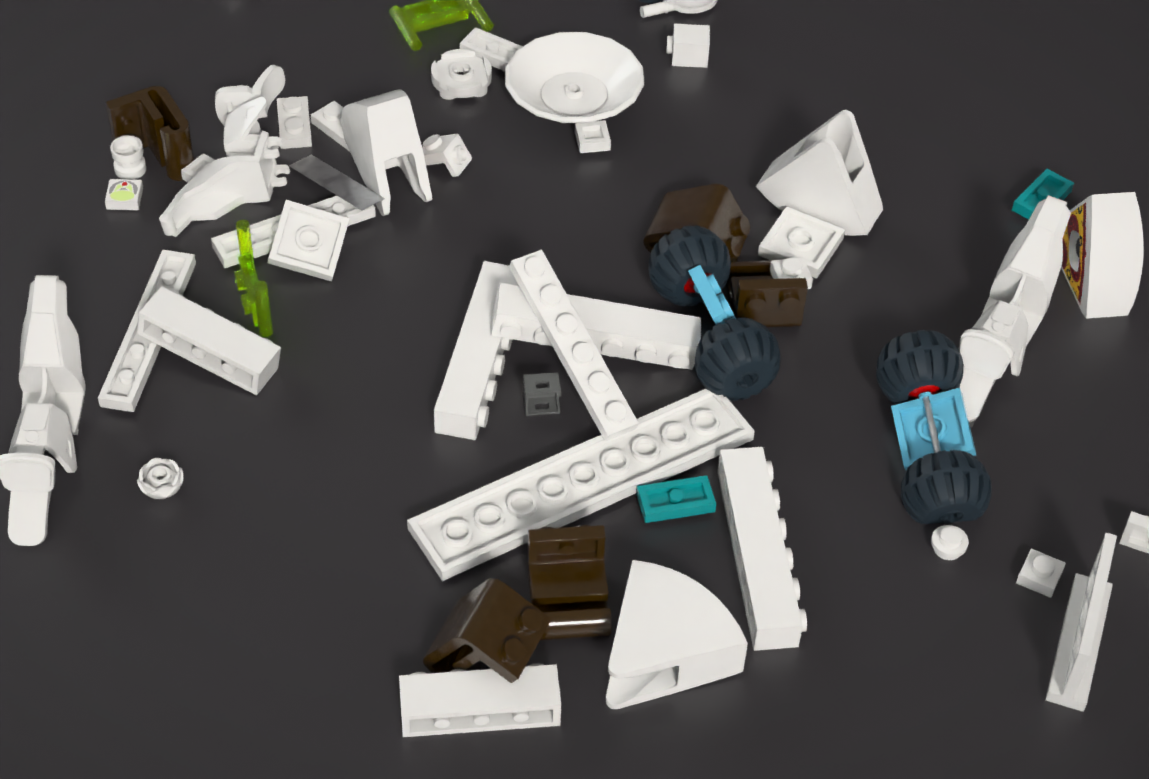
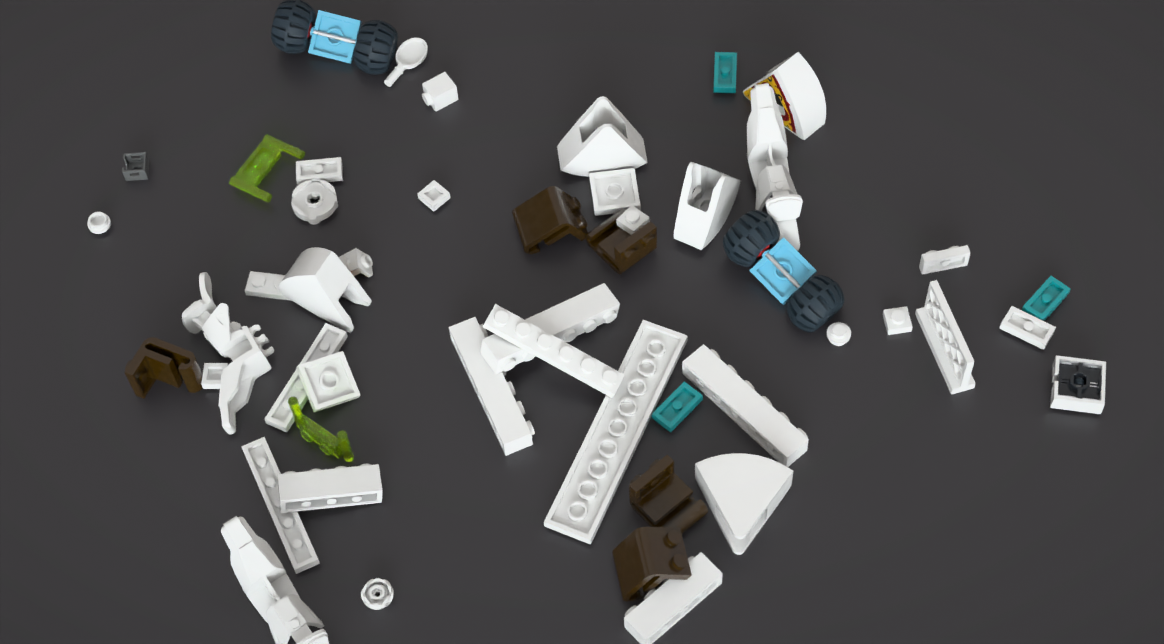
camera: 30 degrees left, 10 degrees up
(123, 194) = (175, 423): white tile -> none
(128, 157) = (157, 397): white wheel -> none
(294, 122) = (239, 303): white plate -> none
(336, 182) = (306, 329): flat silver sticker -> none
(548, 395) = (547, 388): dark grey piece -> none
(574, 77) = (392, 147): white dish -> none
(738, 353) = (575, 252): black plate -> none
(916, 302) = (706, 210): none -> white piece

